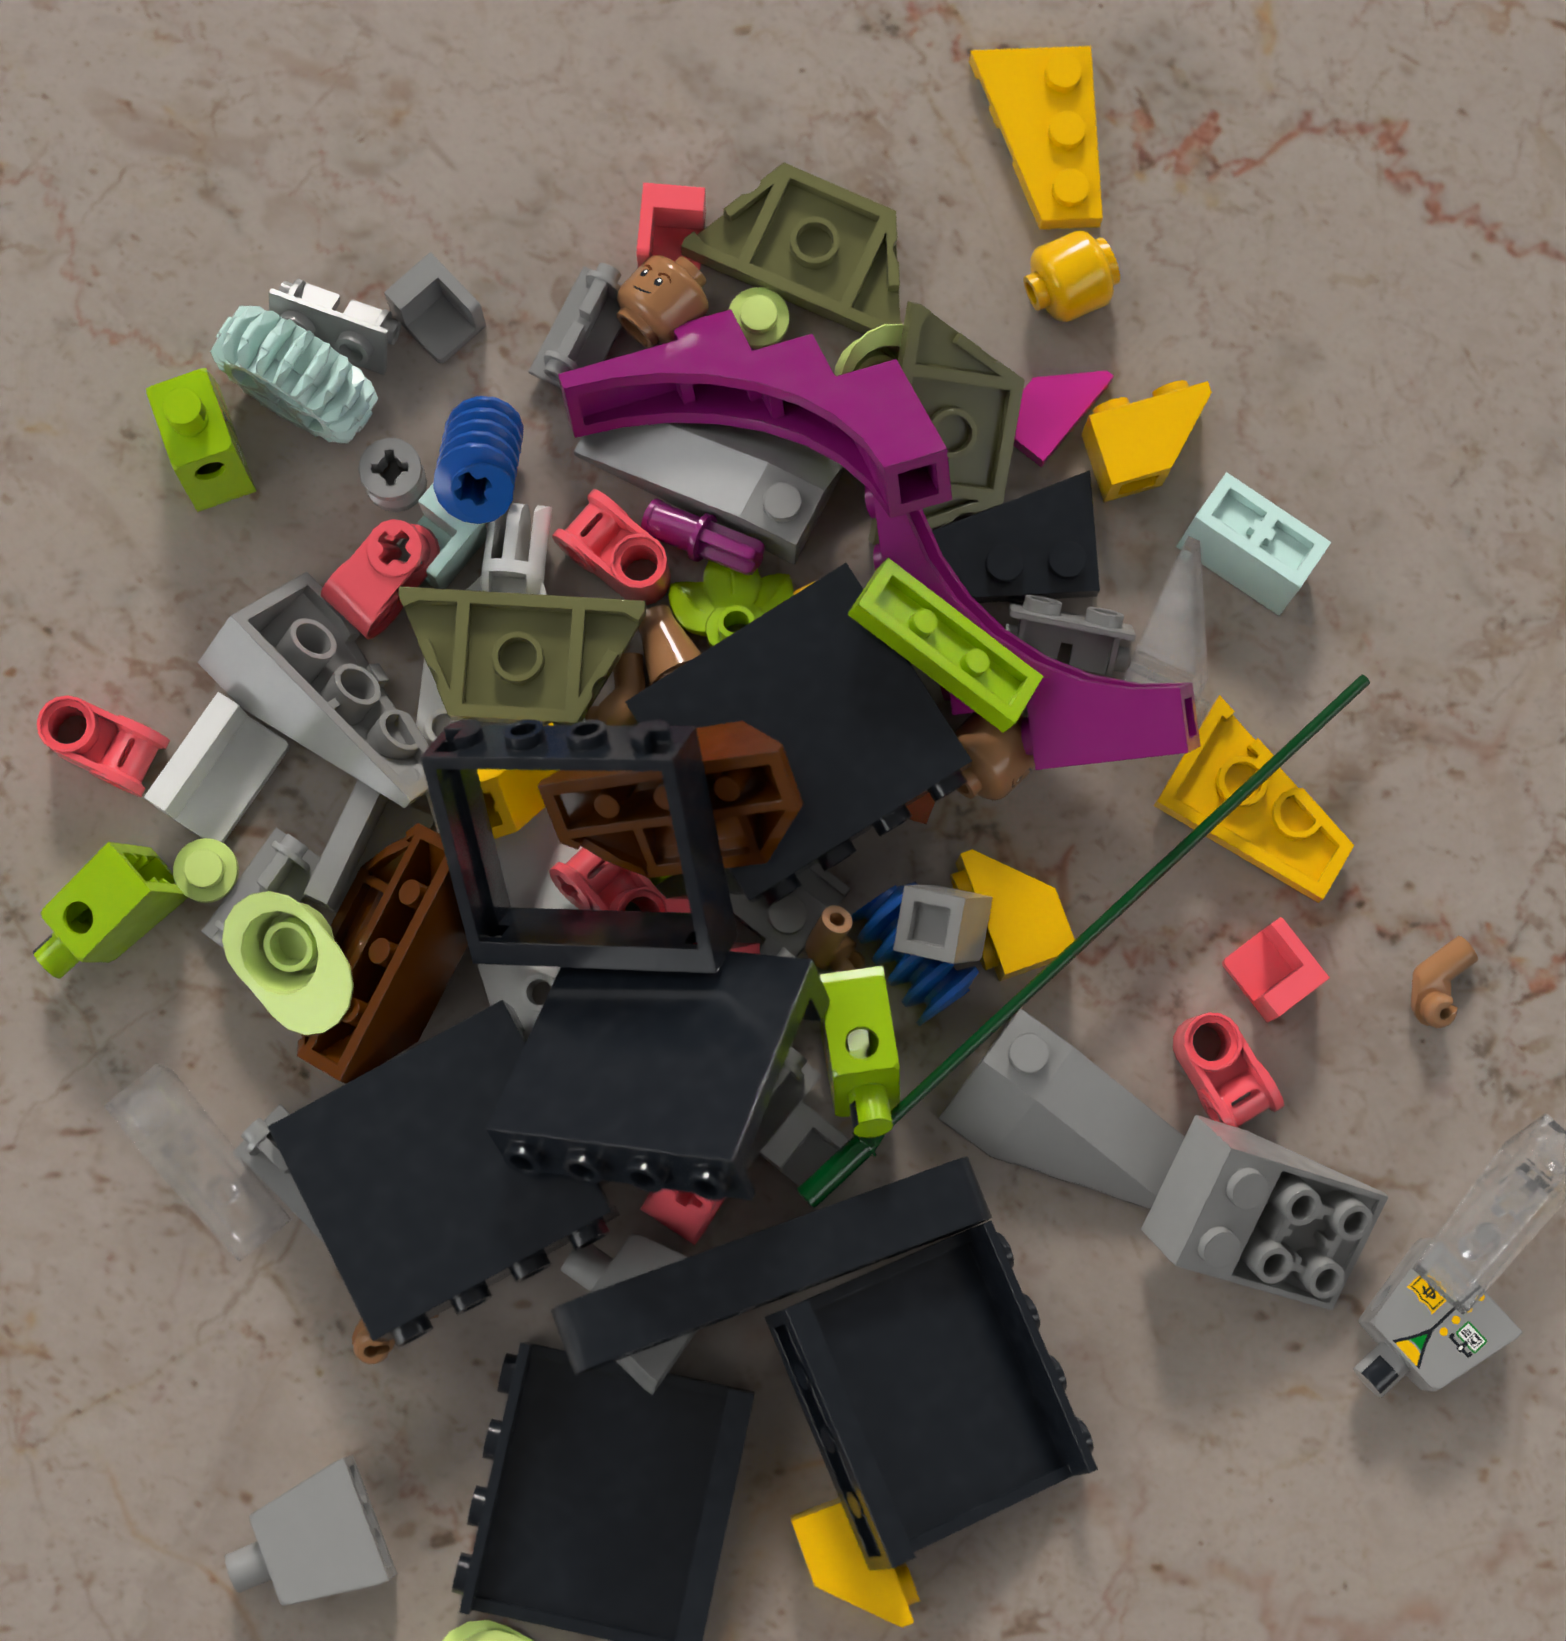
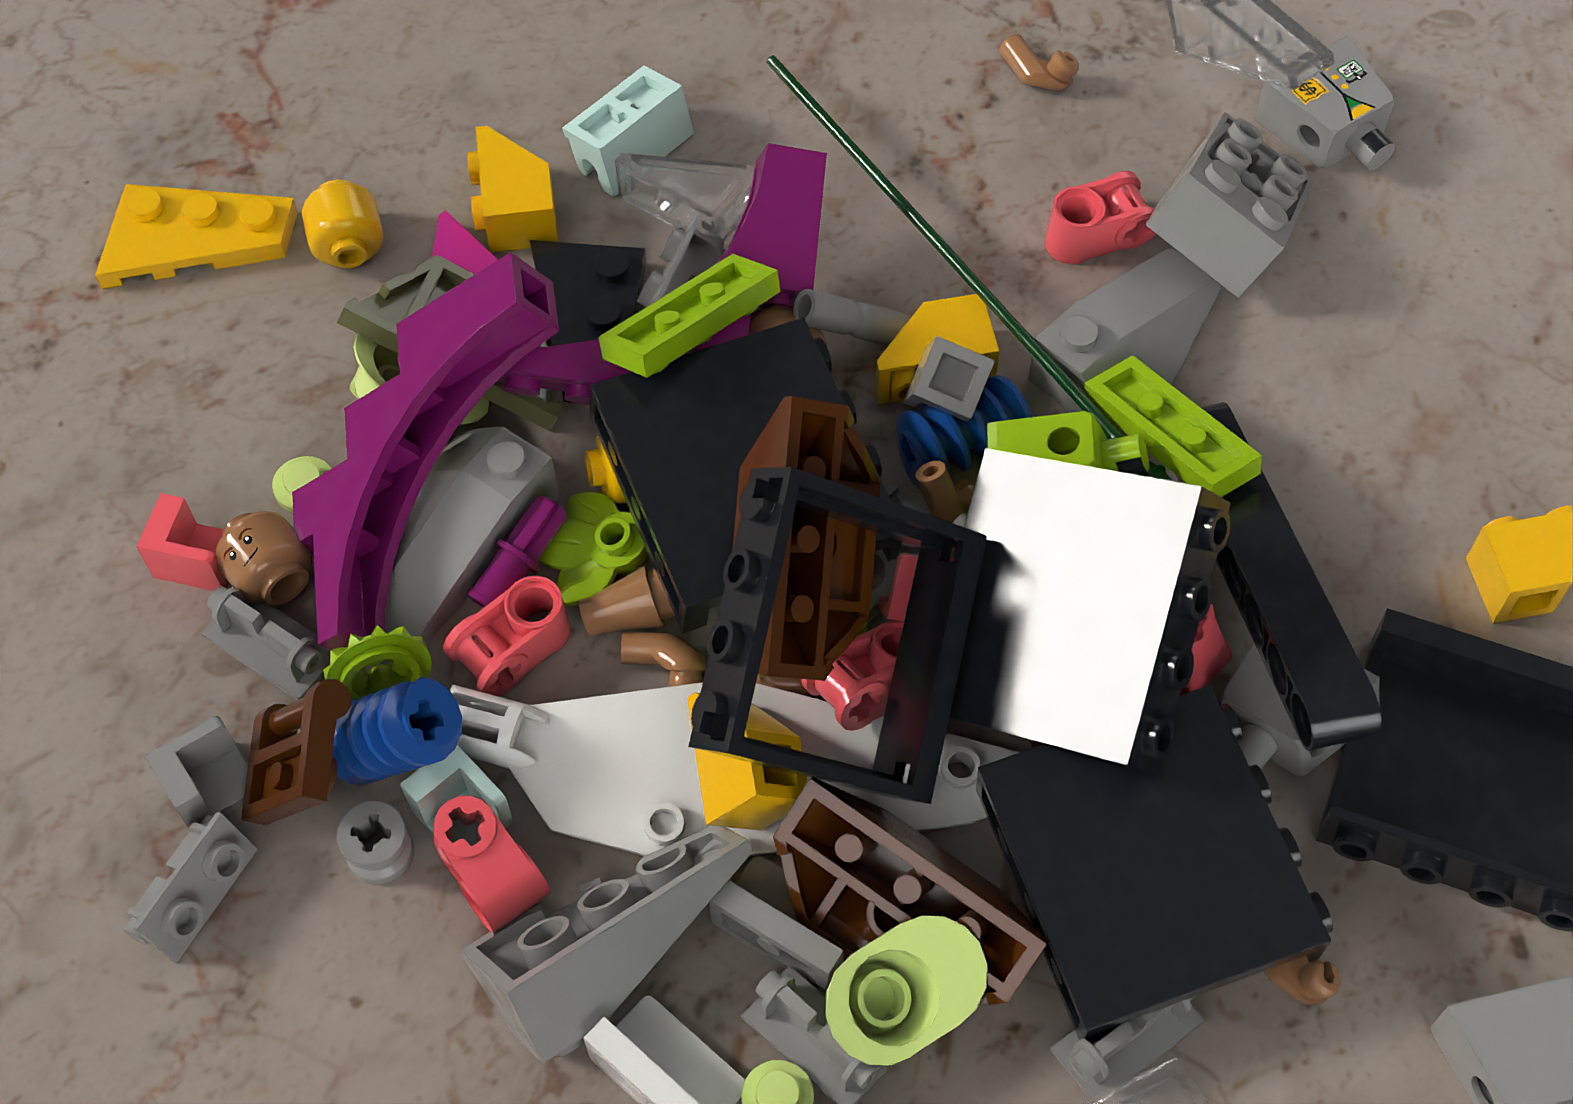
camera: 75 degrees left, 20 degrees down
(200, 432) = (277, 1031): lime torso -> none
(294, 374) = (238, 911): light aqua gear -> none
(434, 381) = (289, 768): none -> reddish brown plate
(518, 652) = (603, 729): olive wing -> none
(554, 434) = (406, 658): none -> lime gear
(810, 247) = (246, 426): olive wing -> none
(920, 1158) = (1173, 427): none -> lime plate
(931, 1394) = (1393, 465): black panel -> none
(1027, 811) = (846, 317): none -> light grey piece
(1273, 827) = (900, 145): yellow wing -> none
(1274, 970) = (1015, 168): coral panel -> none

